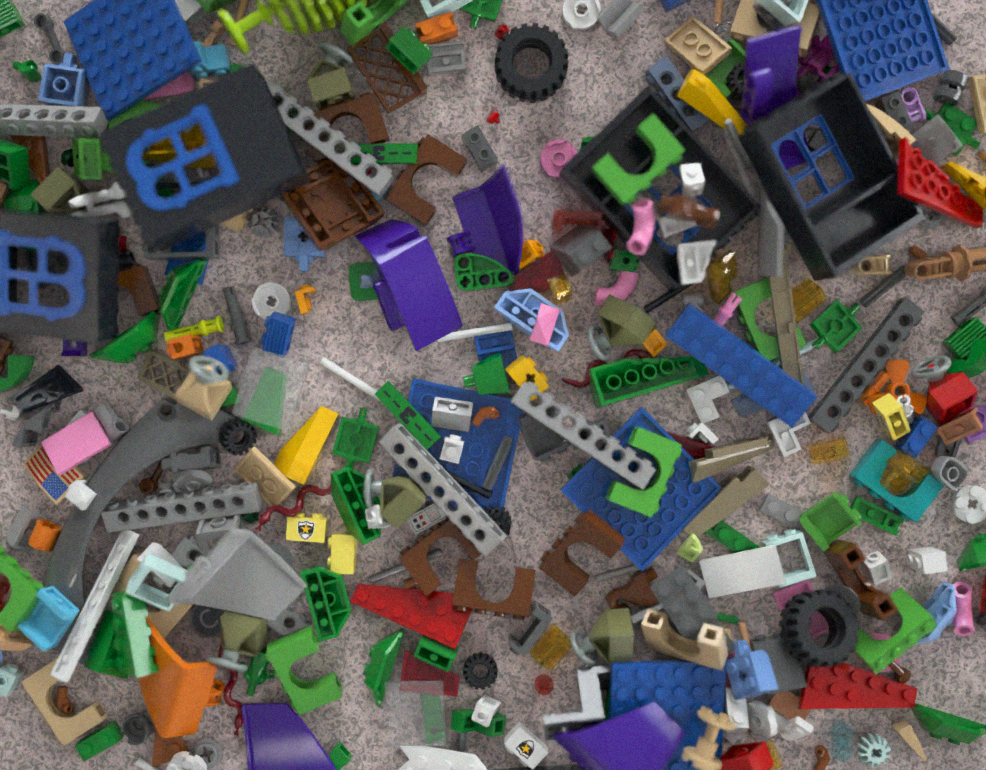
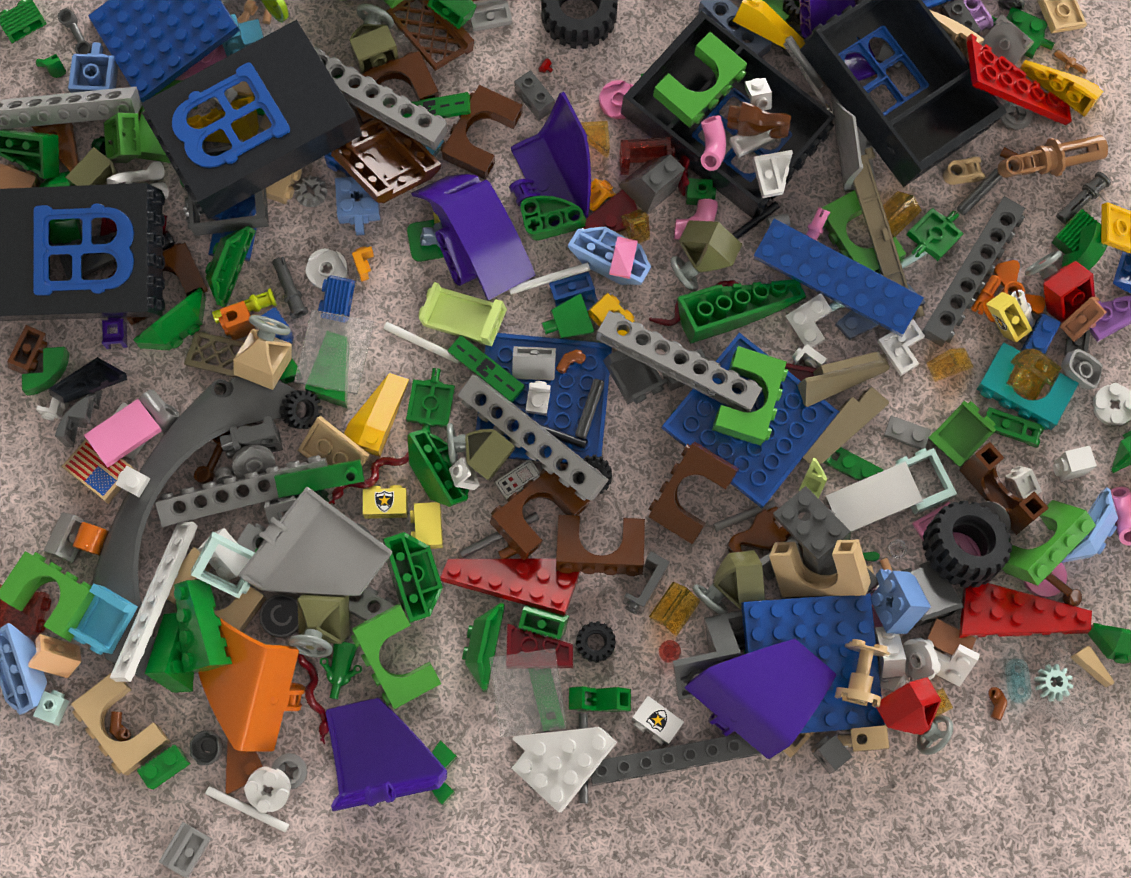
camera: 10 degrees left, 15 degrees down
(251, 506) = (319, 478): none -> green piece
(391, 360) = (462, 315): none -> yellowish green panel
(485, 710) = (605, 683): white bracket -> none
(534, 194) = (598, 136): none -> clear yellow slope
(654, 343) = (742, 269): light orange bracket -> none
(720, 275) = (805, 192): clear yellow brick -> none

